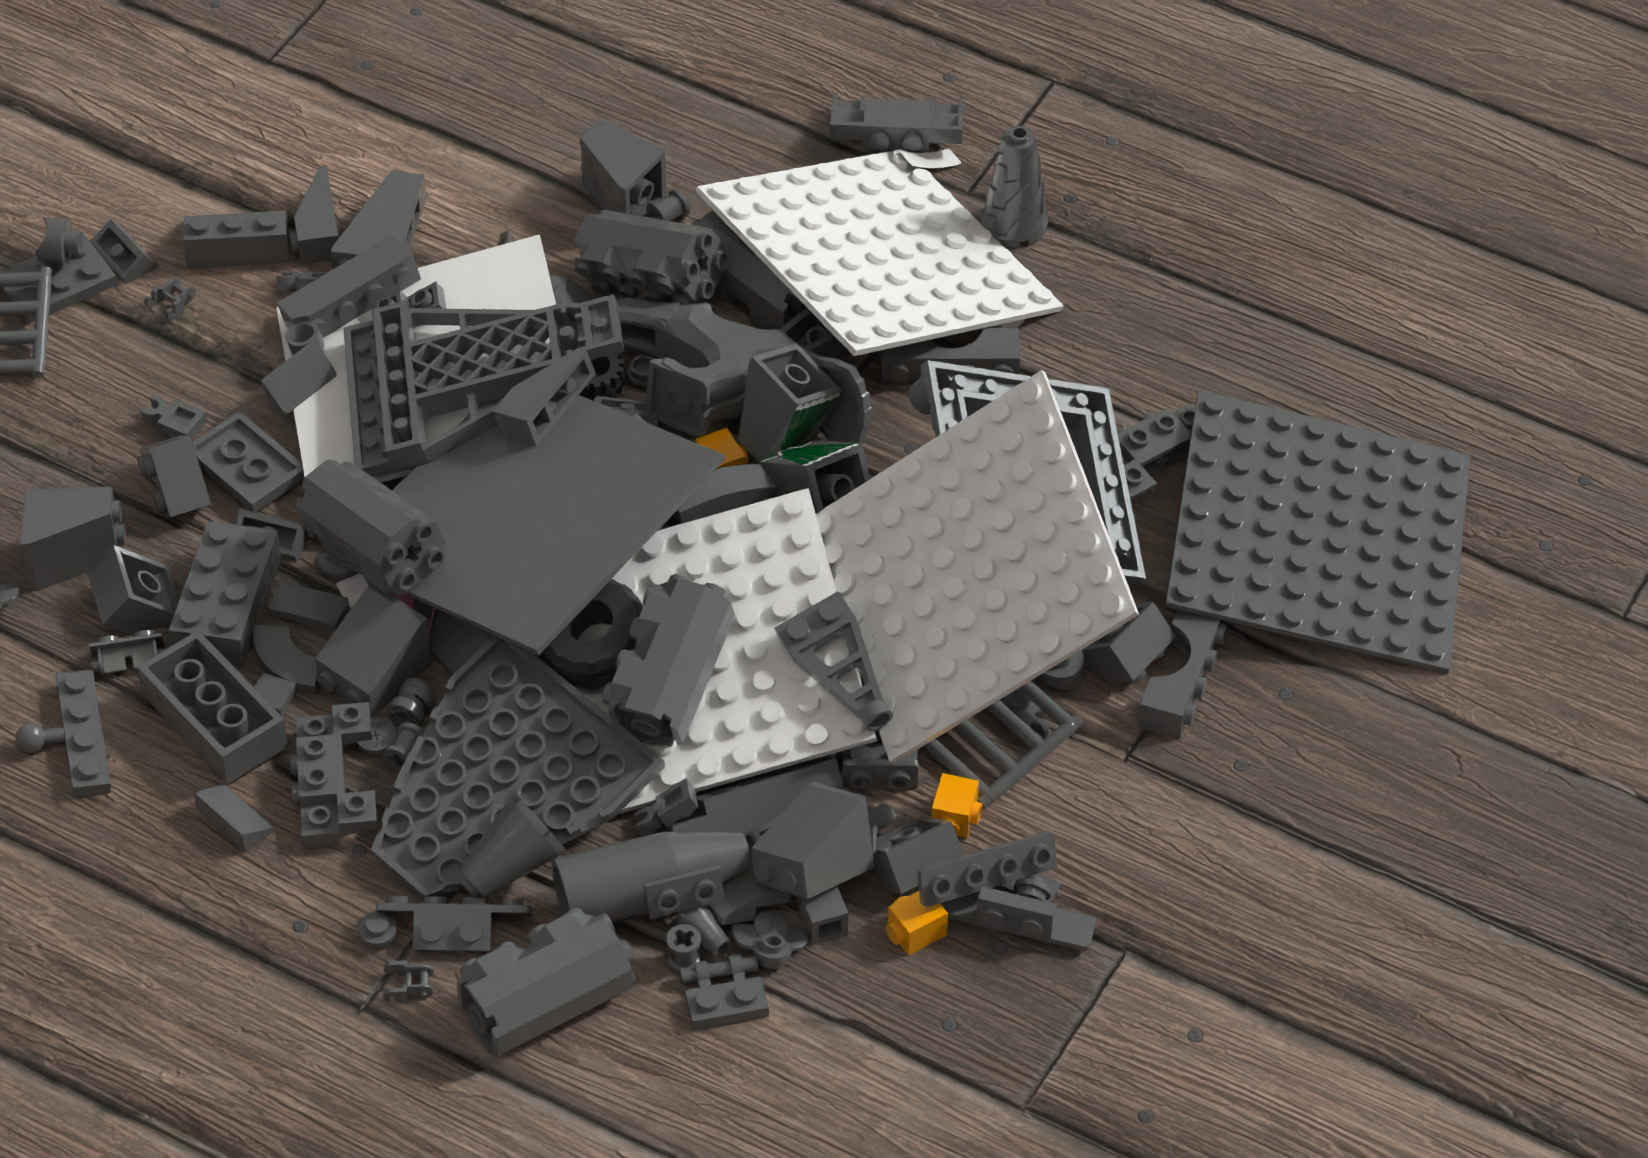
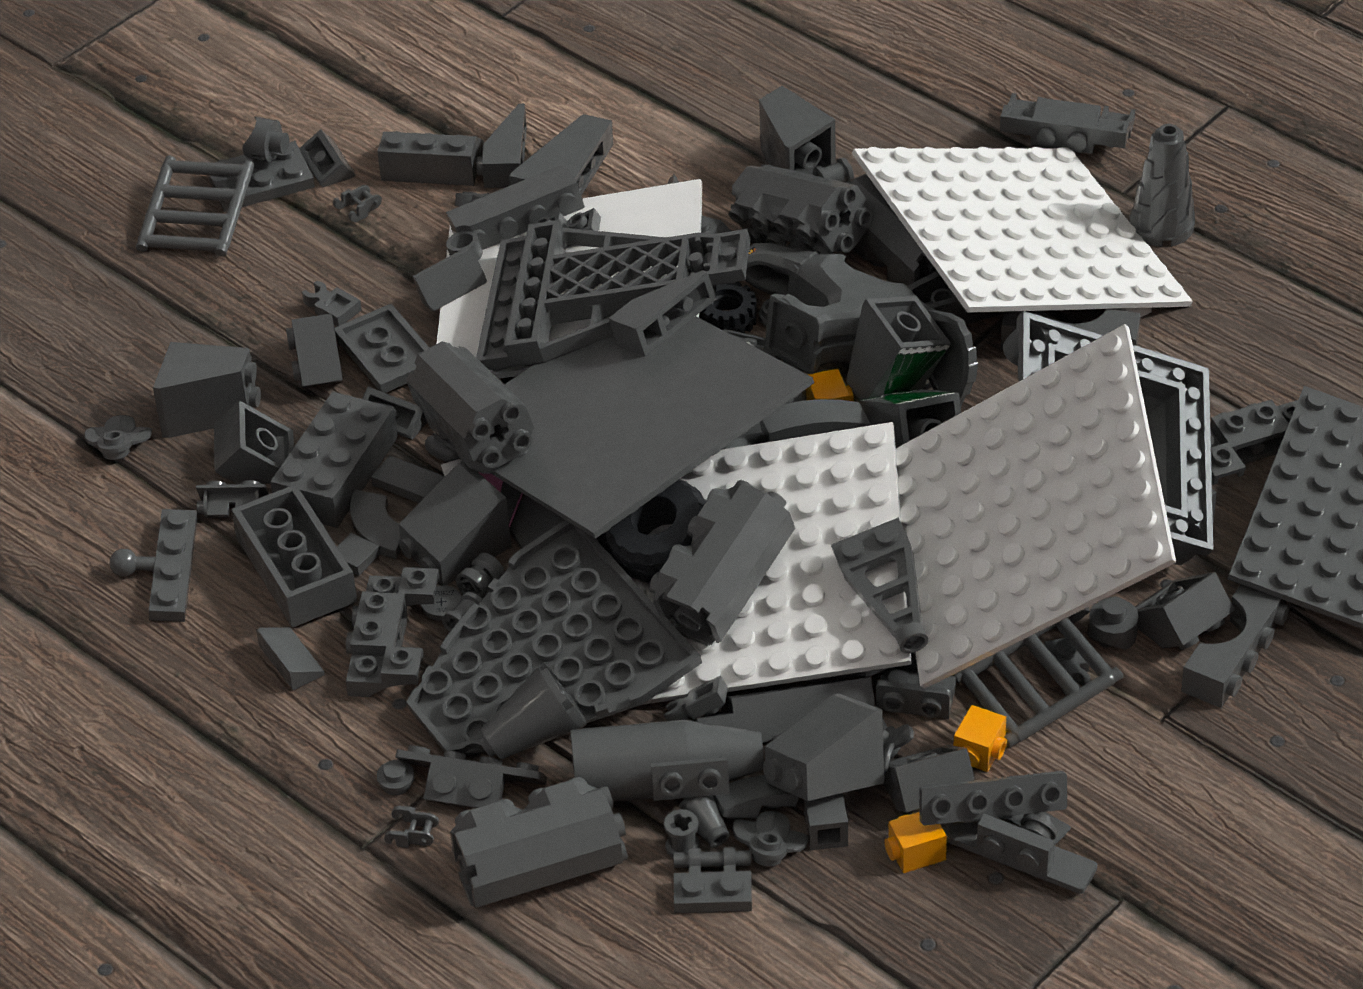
camera: 15 degrees right, 5 degrees down
(935, 159) = (1104, 161): white sticker -> none

